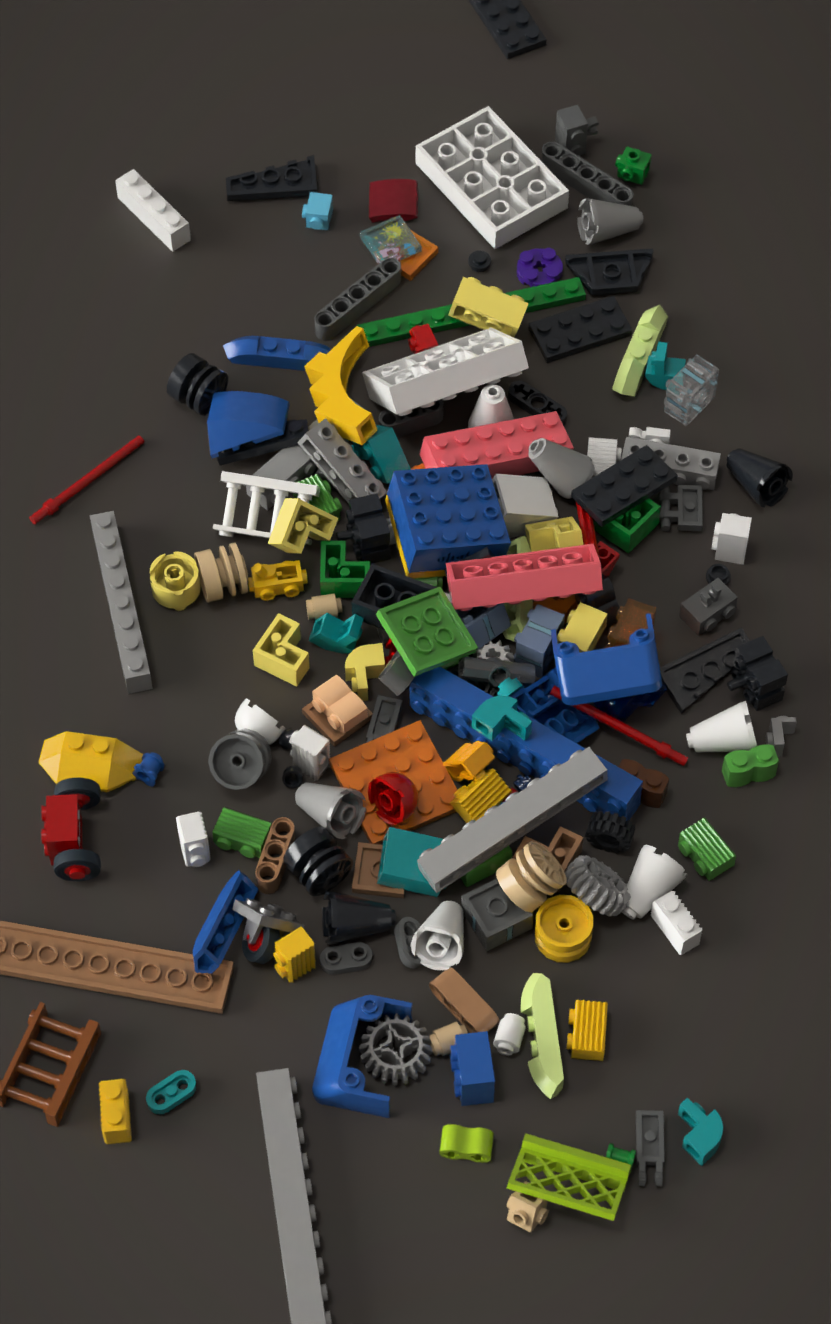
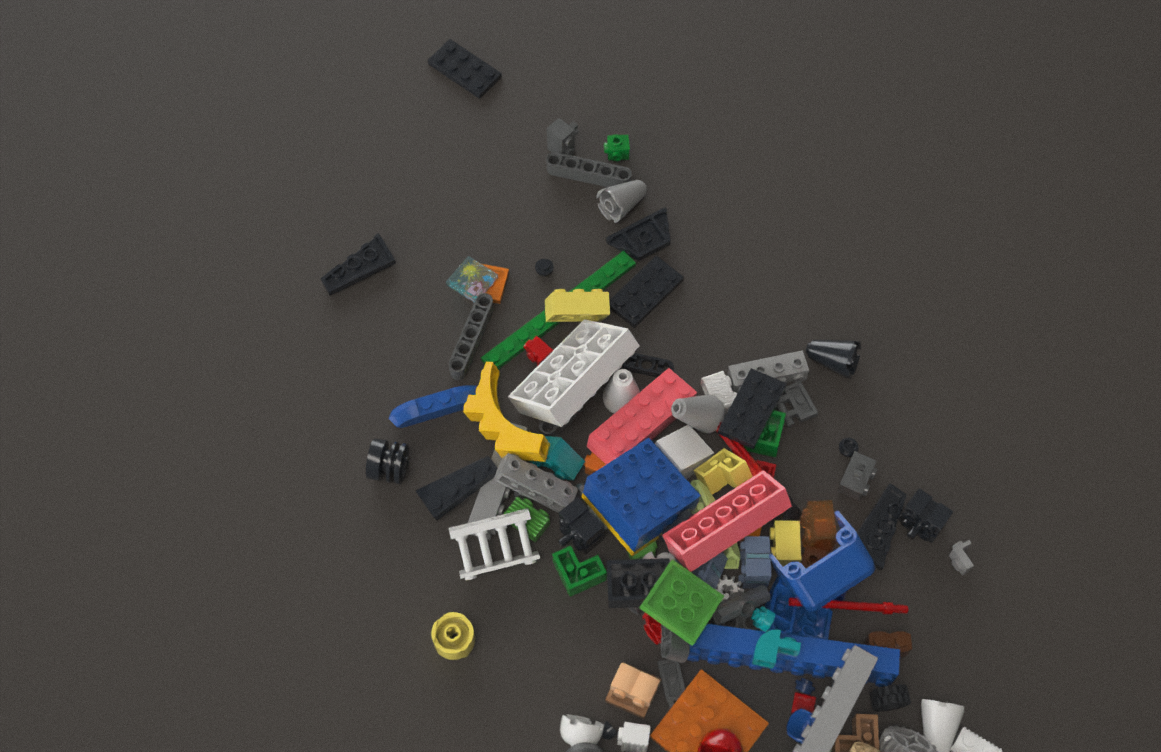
camera: 25 degrees left, 5 degrees up
(52, 505) = (321, 613): red bar -> none
(121, 602) = (420, 674): light grey brick -> none
(153, 210) = (277, 328): white brick -> none
(221, 572) = (491, 610): tan wheel -> none
(243, 418) = (441, 477): blue wedge -> none
(277, 579) = (525, 602): yellow brick -> none
(278, 651) = (564, 663): light yellow brick -> none
(297, 522) = (529, 551): light yellow brick -> none
(318, 211) = (404, 277): medium azure brick -> none
(323, 604) = (577, 605): tan brick -> none
(336, 634) = (600, 624): teal brick -> none
(364, 664) = (632, 640): light yellow brick -> none
(393, 198) = (455, 244): dark red slope -> none
(469, 760) = (757, 688): light orange brick -> none
(480, 795) = (779, 713): yellow brick -> none
(492, 177) = (520, 197): white brick -> none
(535, 258) = (587, 246): dark purple plate -> none
(640, 347) = (698, 291): yellowish green brick -> none
(651, 434) = (743, 356): white plate -> none
(661, 367) = (727, 300): teal brick -> none
(691, 389) = (754, 308): clear container -> none
(706, 849) = (962, 676): bright green brick -> none
(724, 731) = (926, 574): white cone -> none
(731, 538) = (847, 414): white brick -> none
(746, 766) = (956, 593): bright green brick -> none

